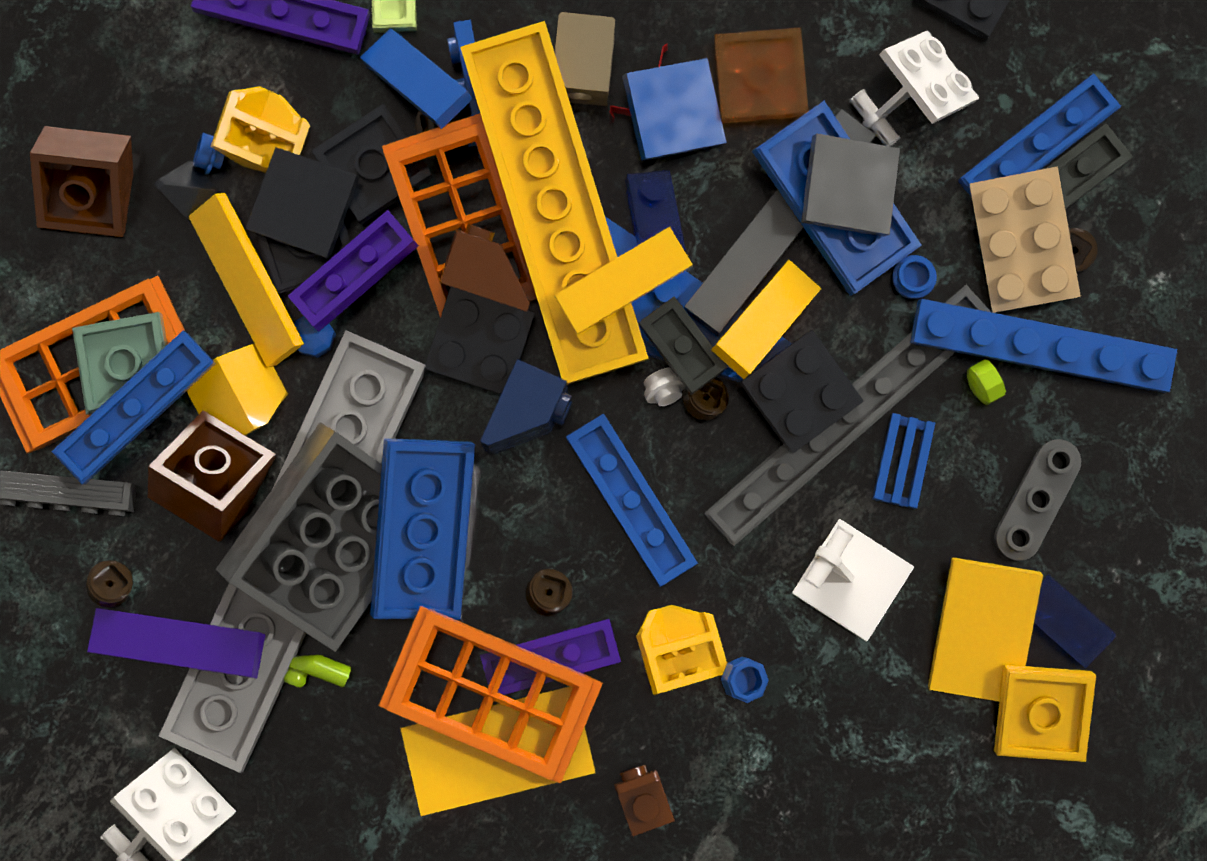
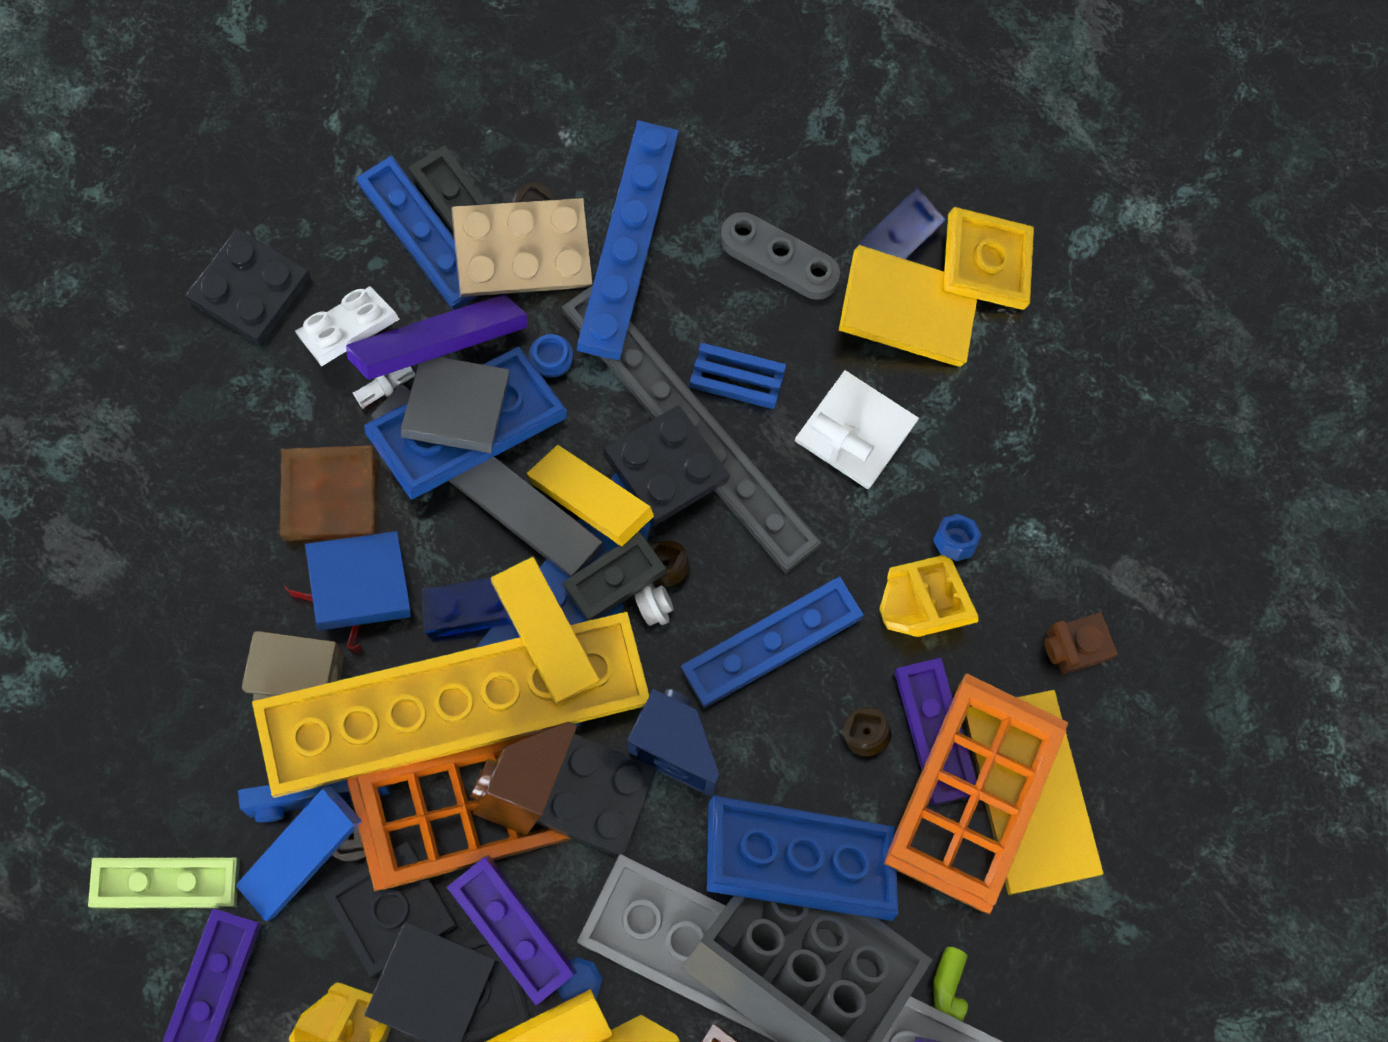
camera: 90 degrees left, 10 degrees down
(920, 162) = (436, 336): none -> dark purple tile
(985, 382) = (662, 292): lime tile -> none

